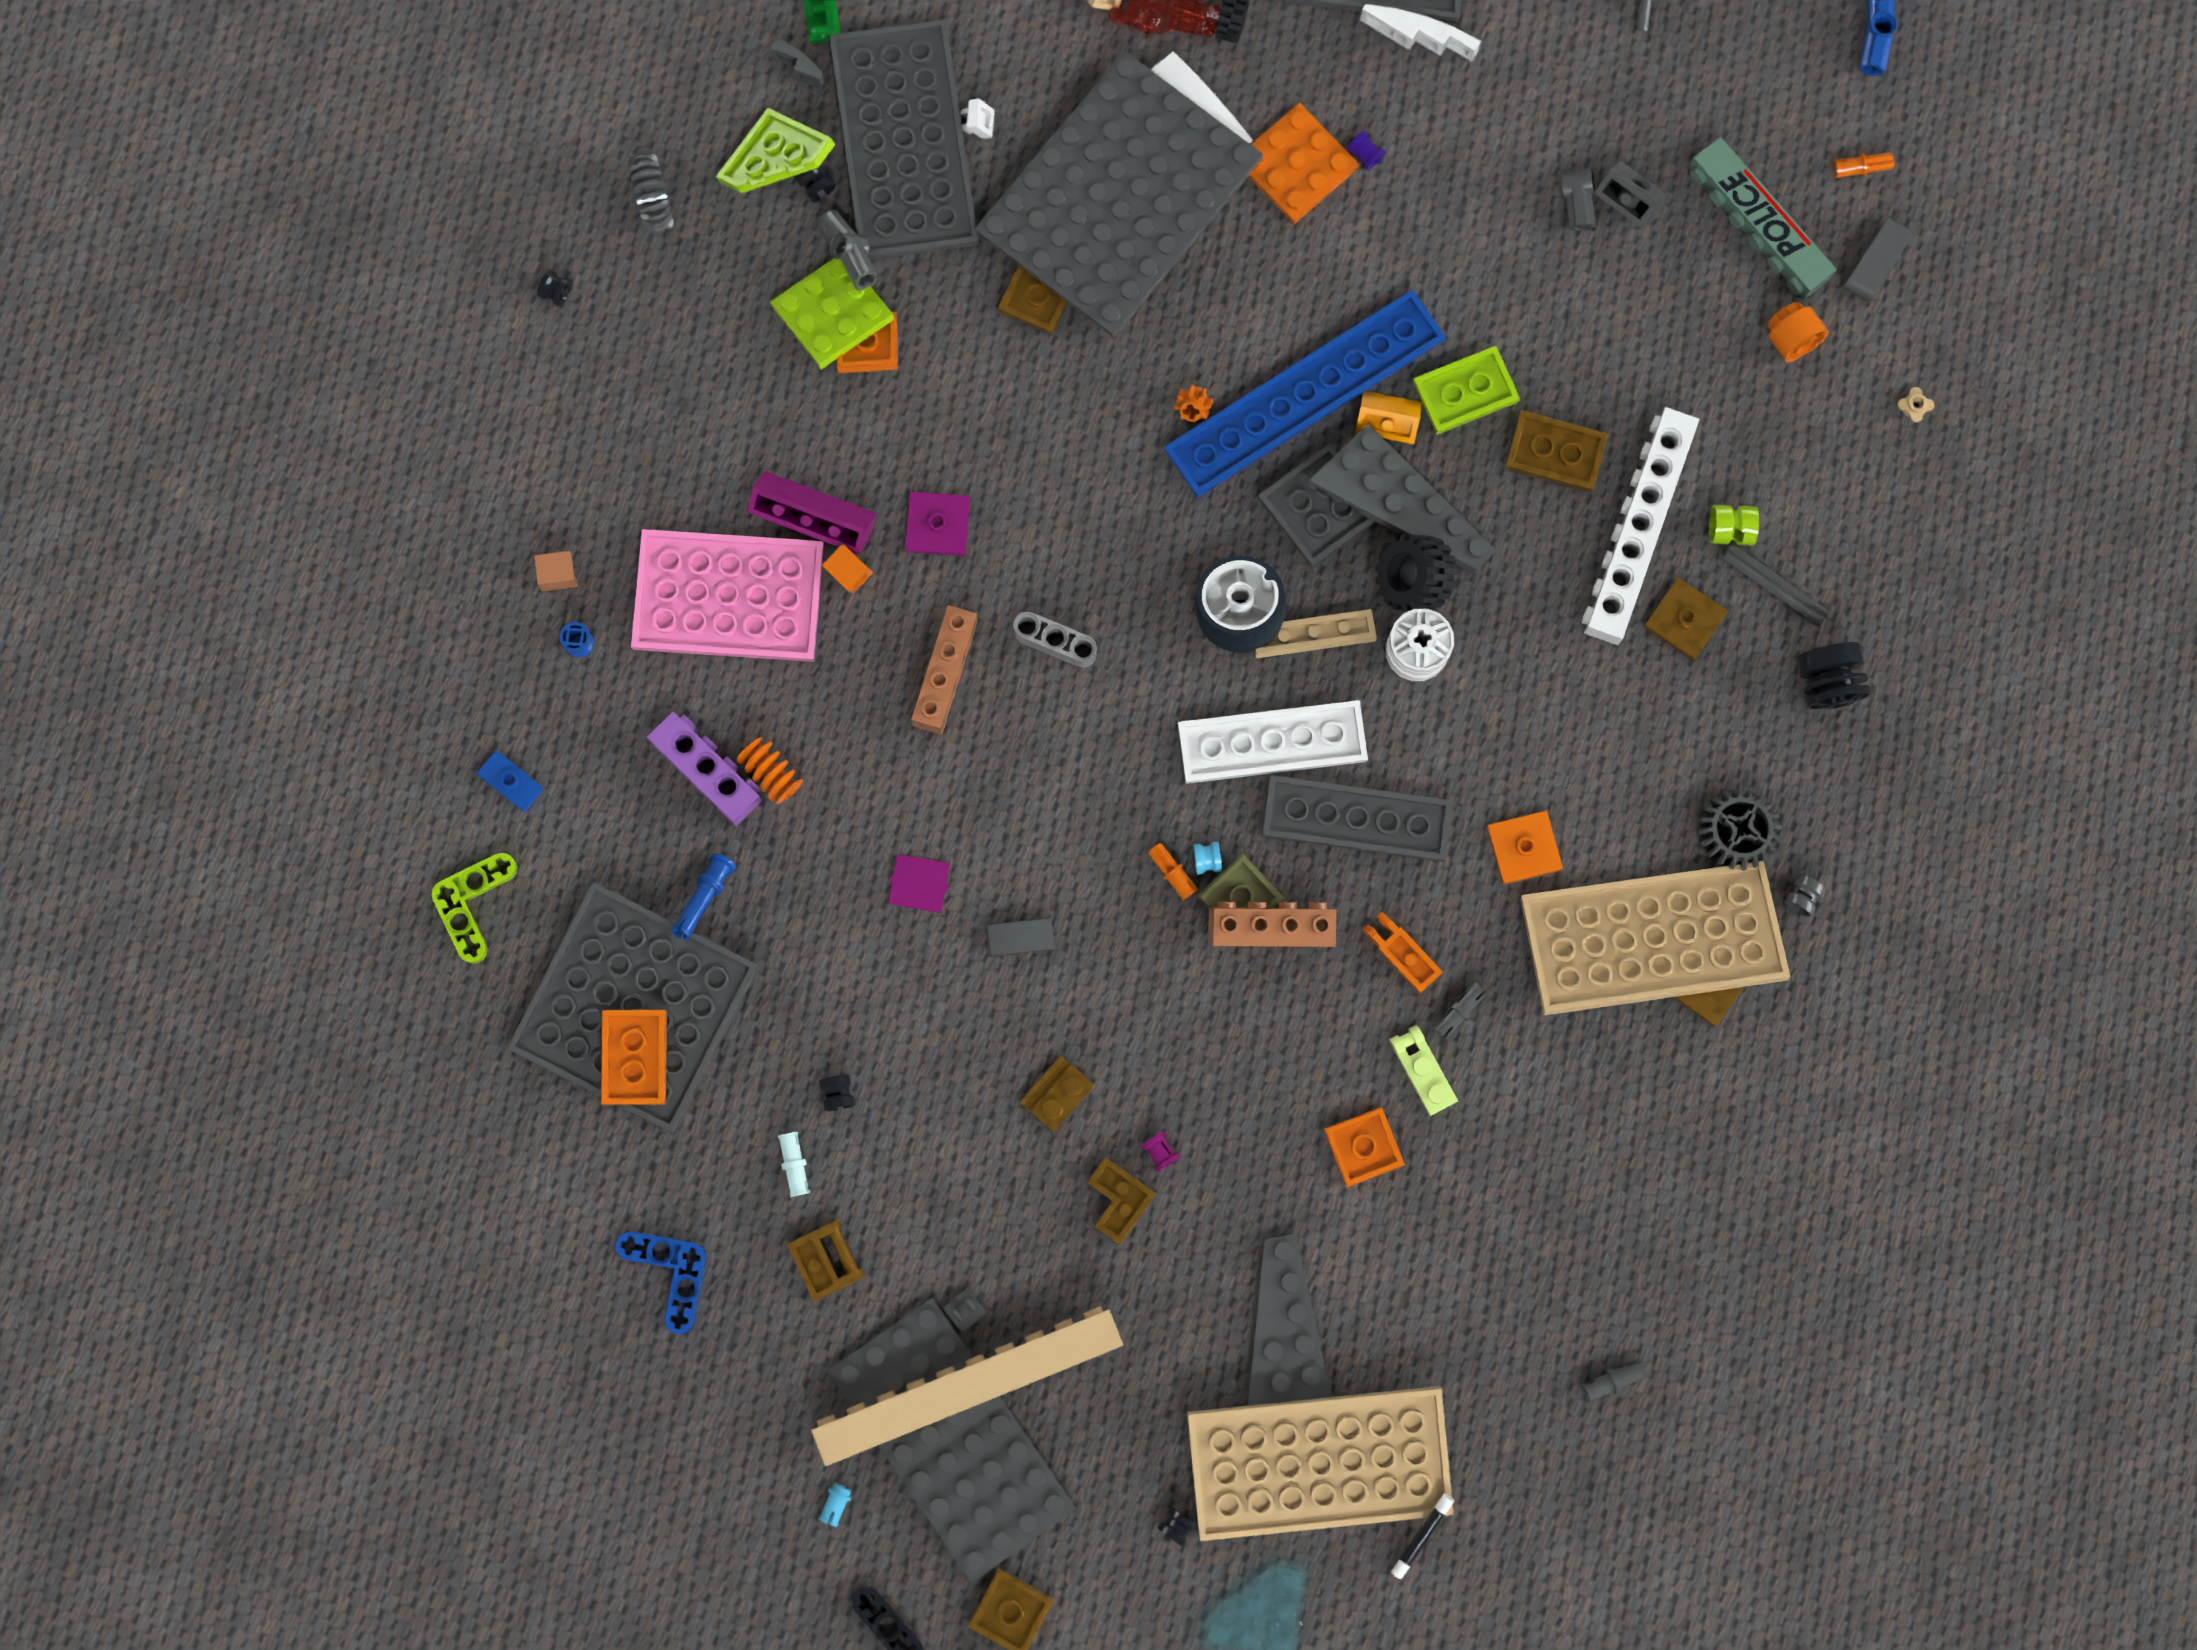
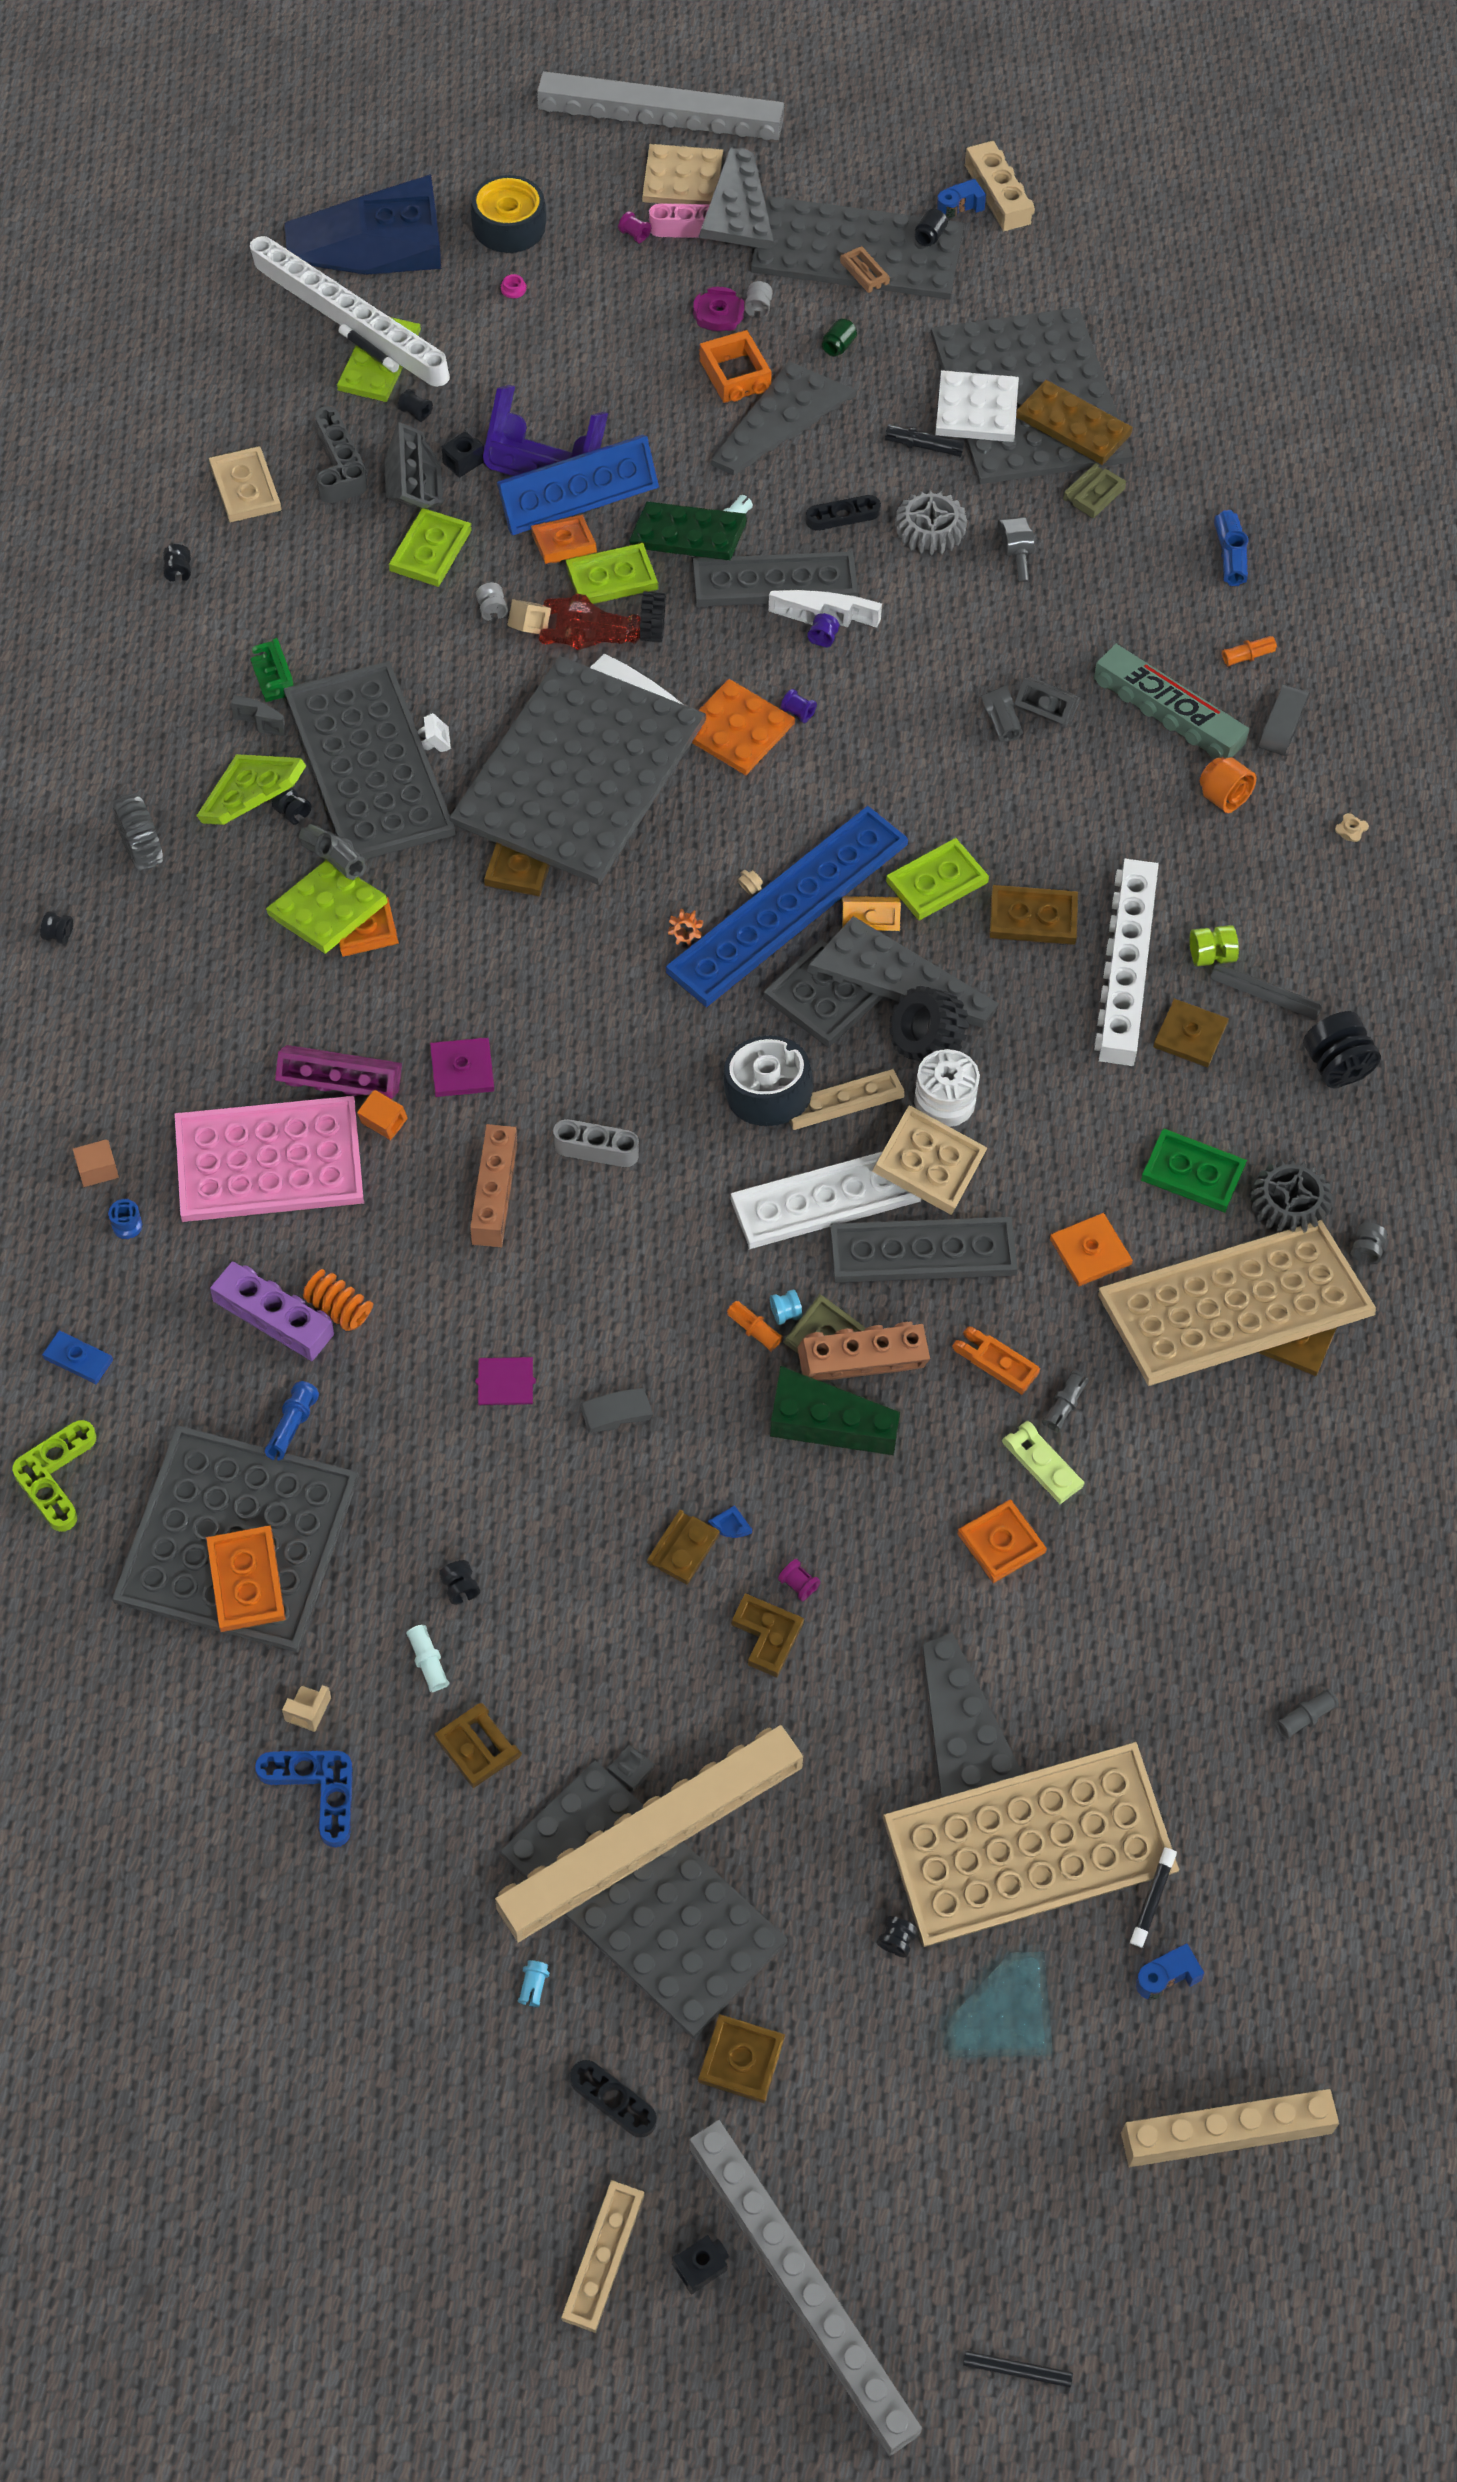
camera: 10 degrees left, 20 degrees down
(673, 1191) = (307, 1707): none -> tan panel
(1107, 1077) = (731, 1523): none -> blue tile
(1223, 985) = (830, 1416): none -> dark green wedge
(1271, 360) = (750, 882): none -> tan plate
(1384, 723) = (929, 1159): none -> tan plate
(1412, 59) = (823, 630): none -> dark purple wheel
(1420, 1607) = (1167, 1971): none -> blue leg
(1649, 779) = (1194, 1170): none -> green plate

